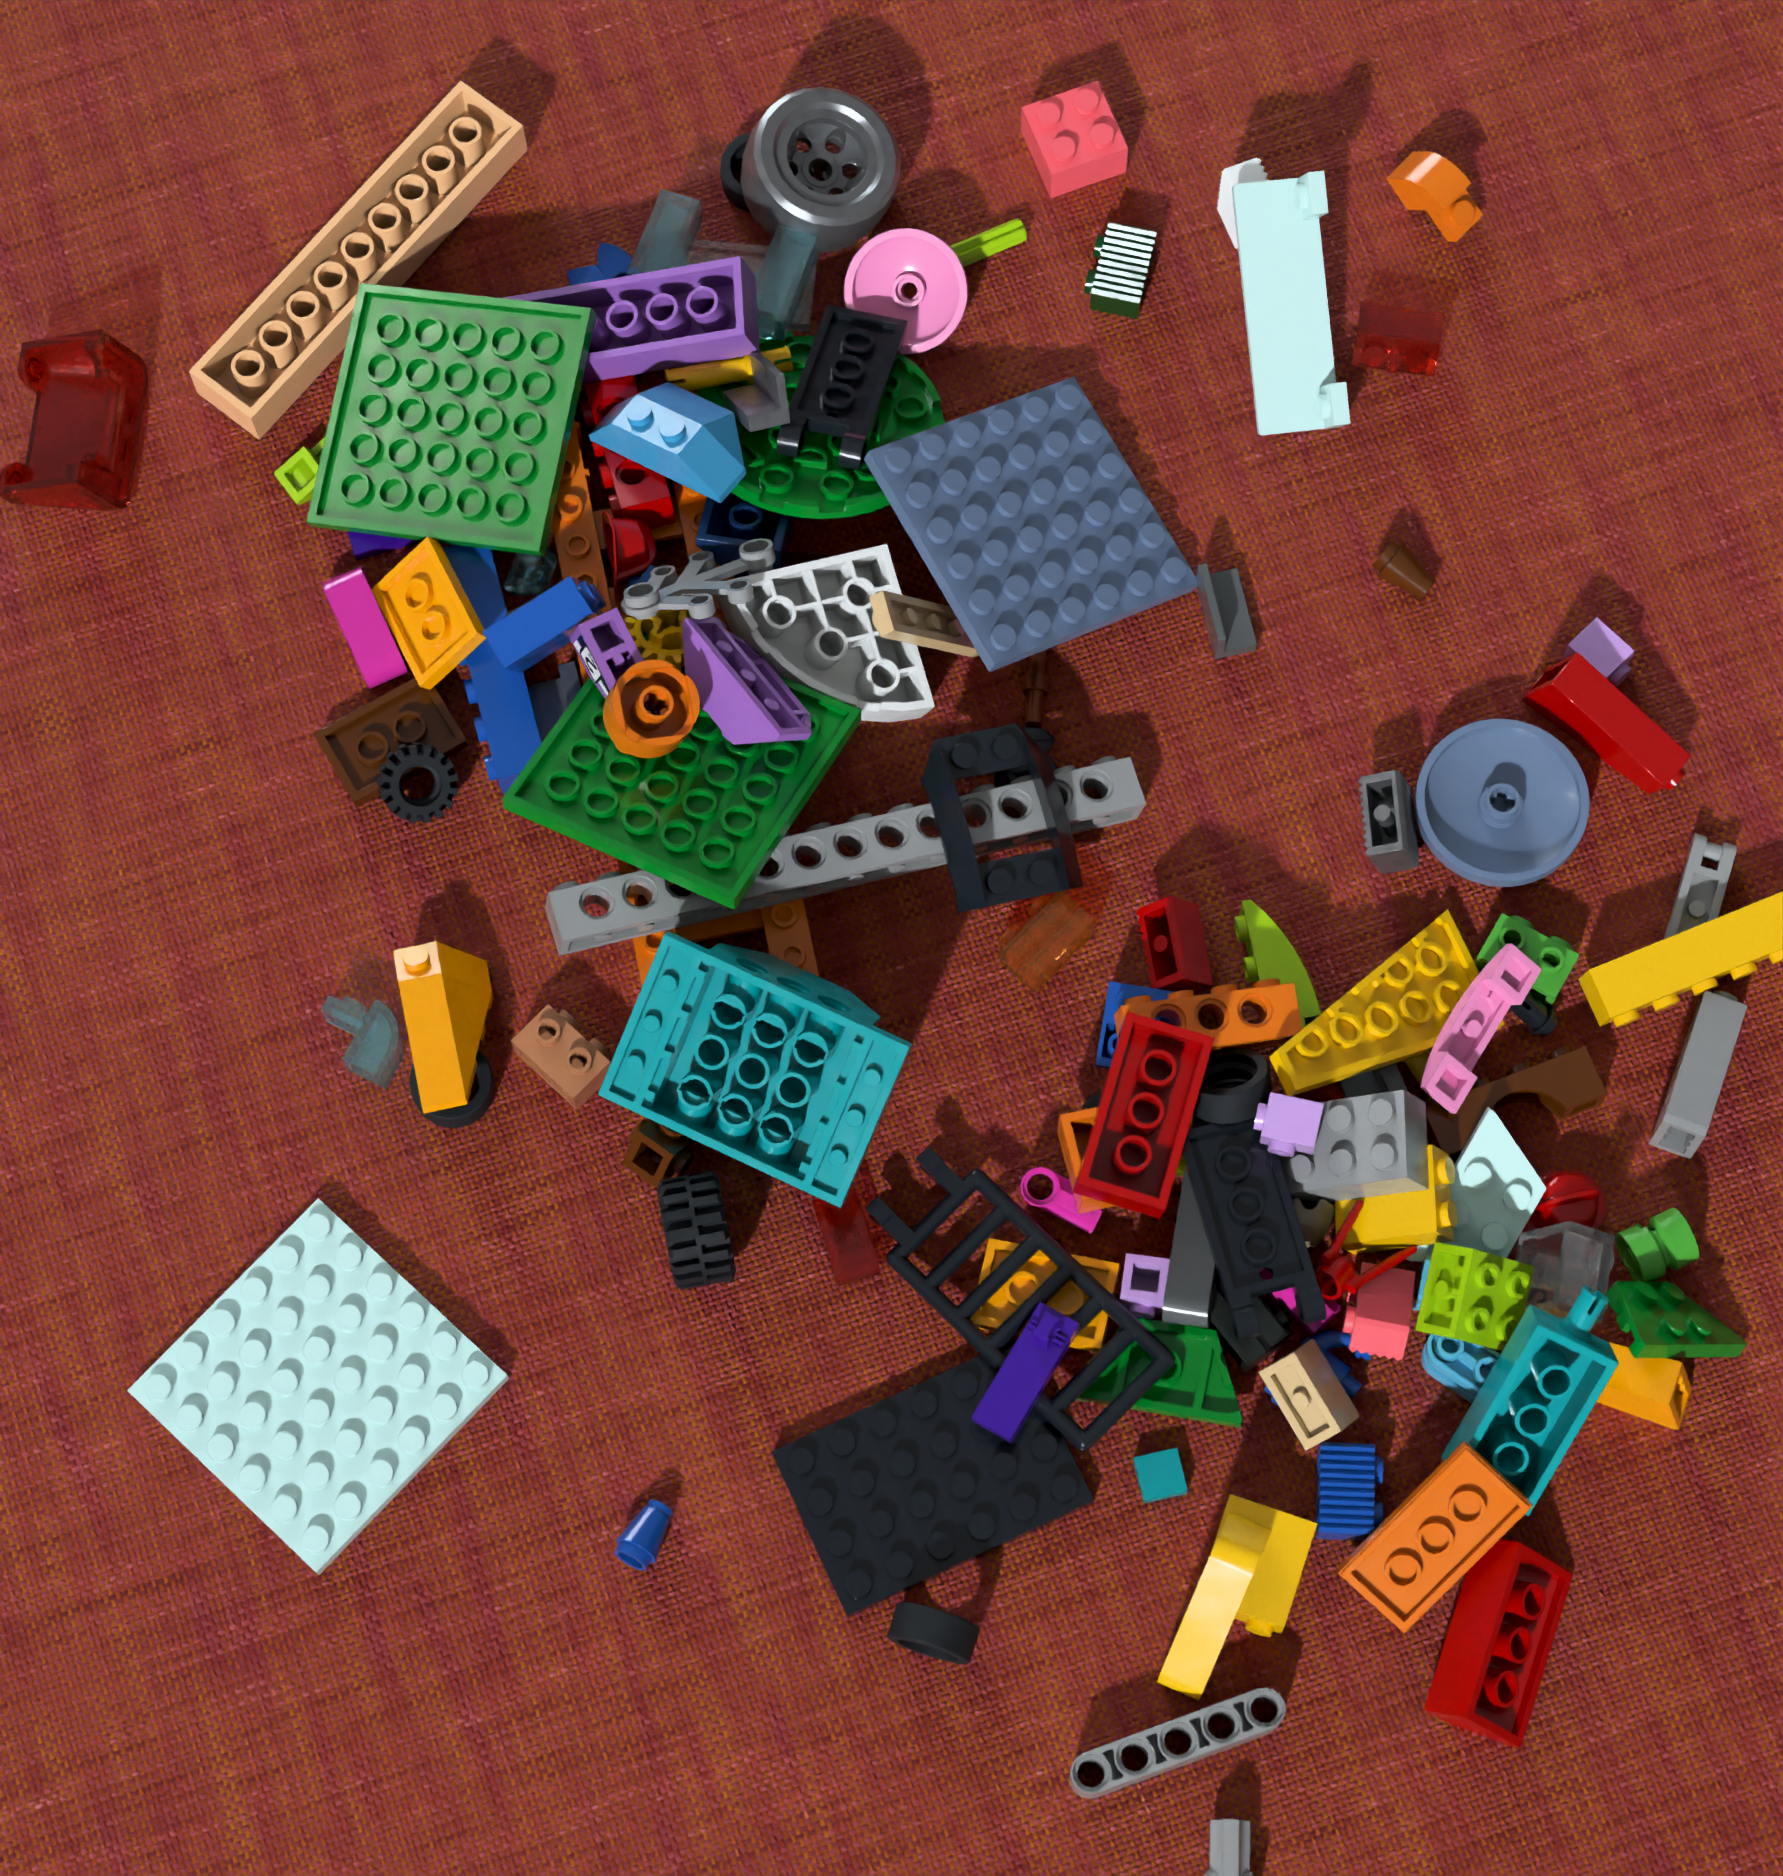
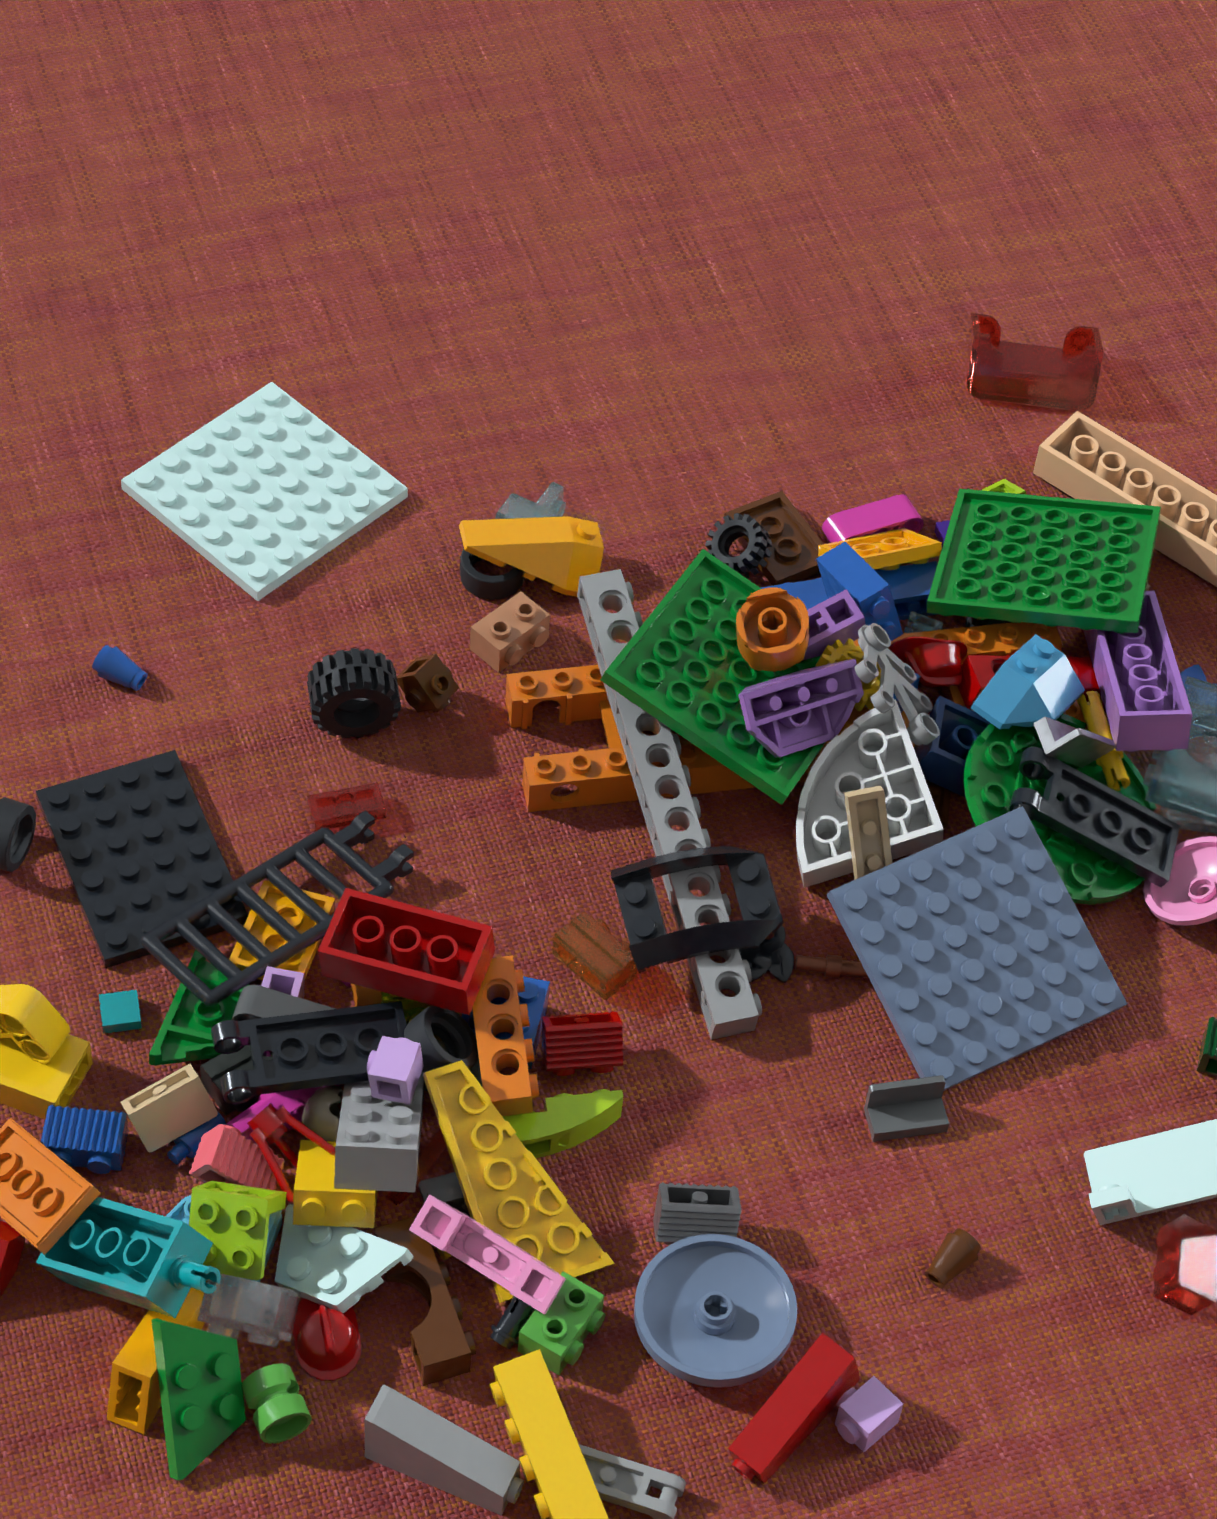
camera: 85 degrees right, 20 degrees down
(757, 1063) = (483, 711): teal wedge -> none
(1025, 1372) = (210, 899): dark purple hinge -> none

